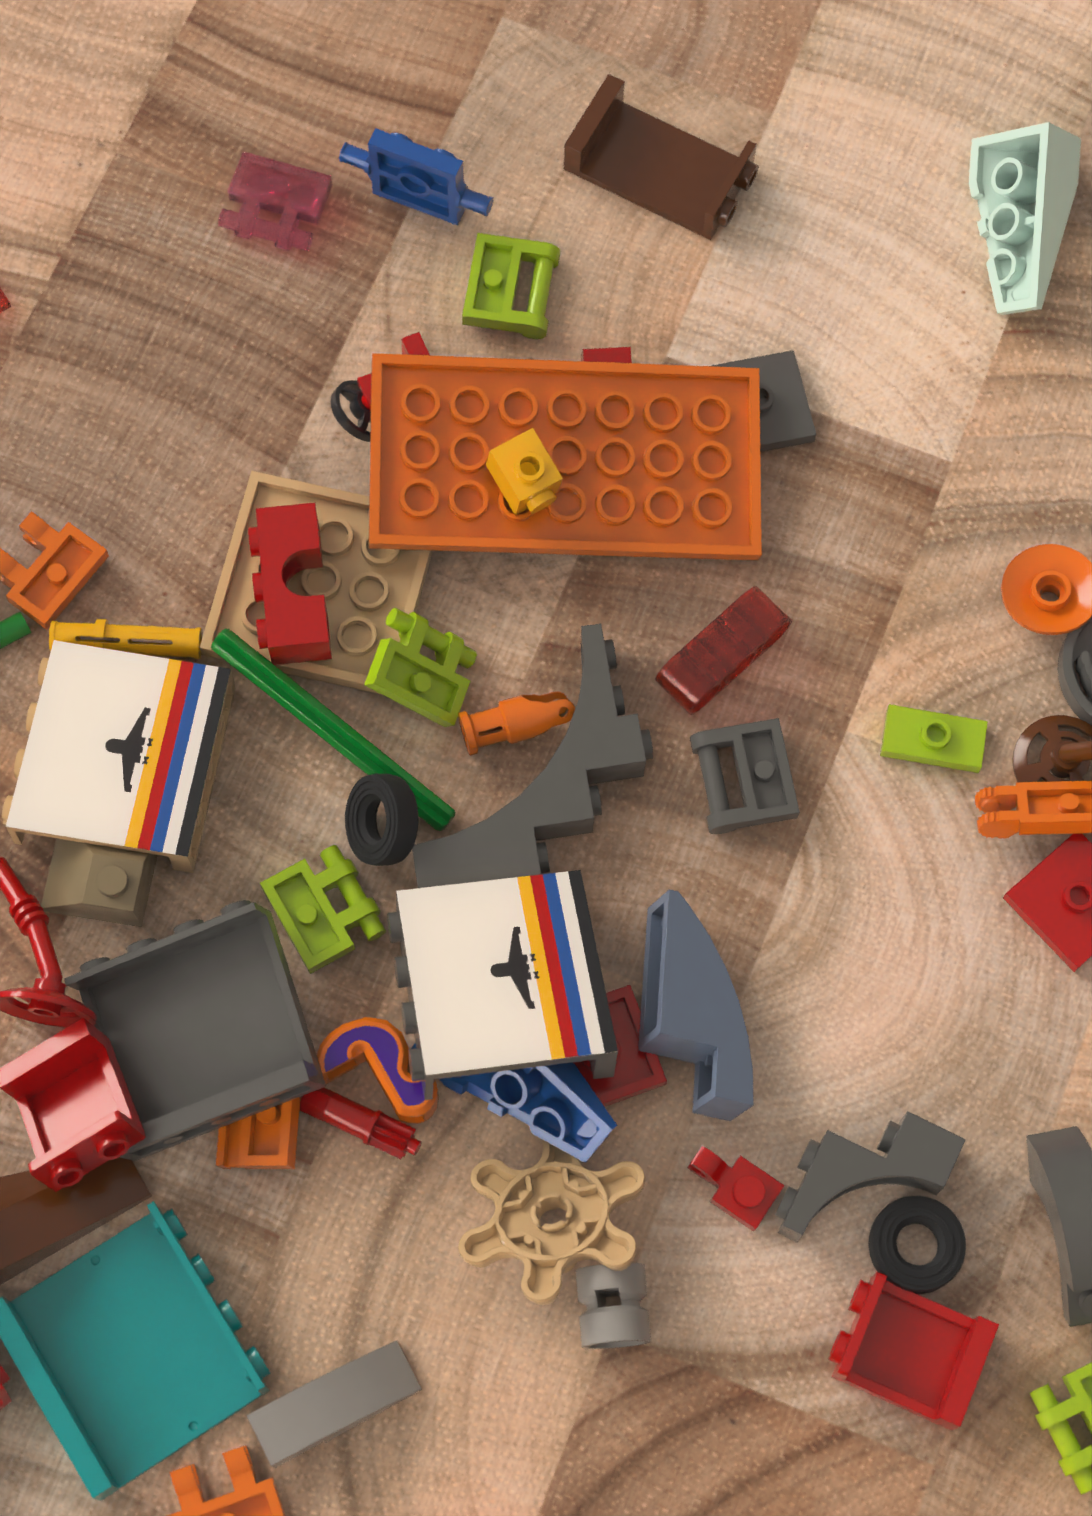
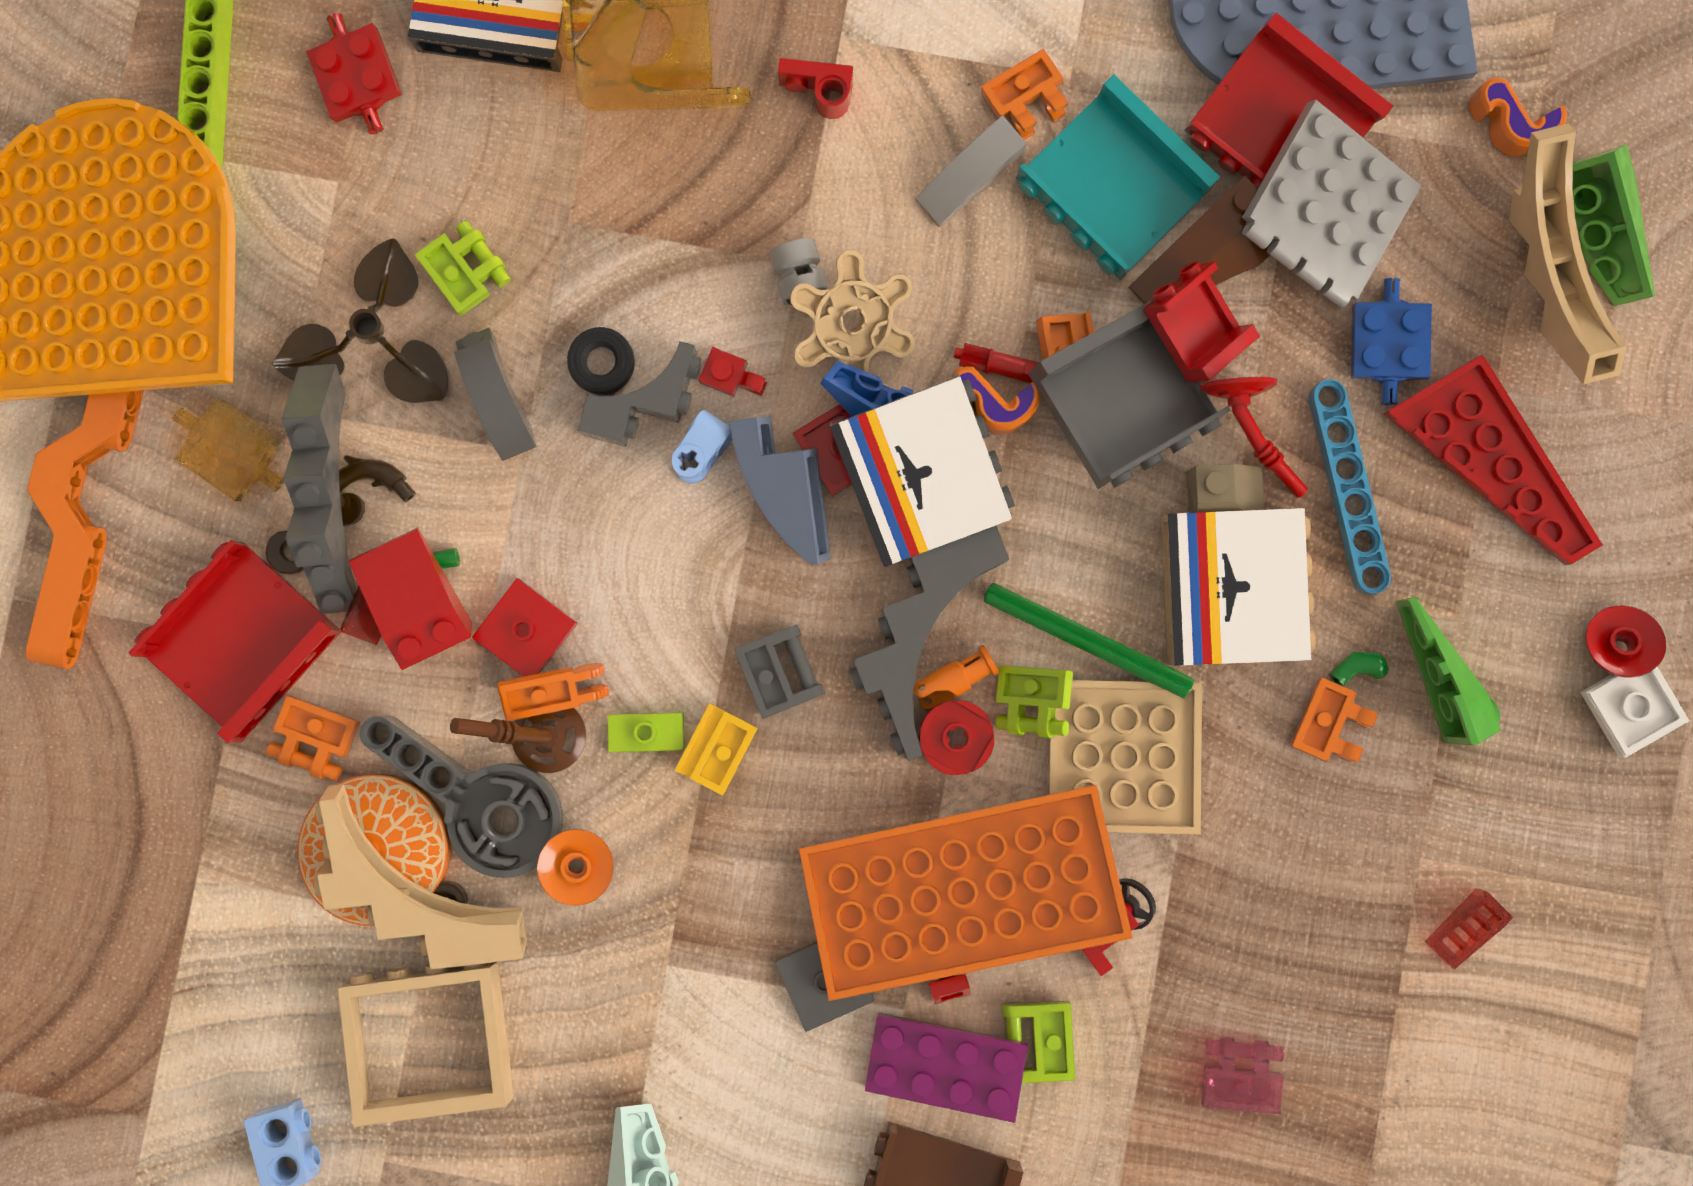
camera: 175 degrees right, 15 degrees up
(185, 640) = (1257, 680): yellow pin -> none
(293, 624) = (1160, 772): red arch -> none
(308, 915) = (1072, 502): lime plate -> none
(400, 819) = (1020, 567): black tyre -> none
(416, 176) = (1127, 1115): blue plate -> none
(525, 473) = (990, 862): yellow brick -> none
(530, 622) = (961, 758): none -> red plate
(629, 278) = (946, 1067): none -> magenta plate
(723, 650) = (813, 766): clear red beam -> none
(791, 1095) = (706, 442): none -> light blue piece
(844, 696) = (716, 749): none -> yellow plate
(912, 1351) = (592, 288): red panel -> none

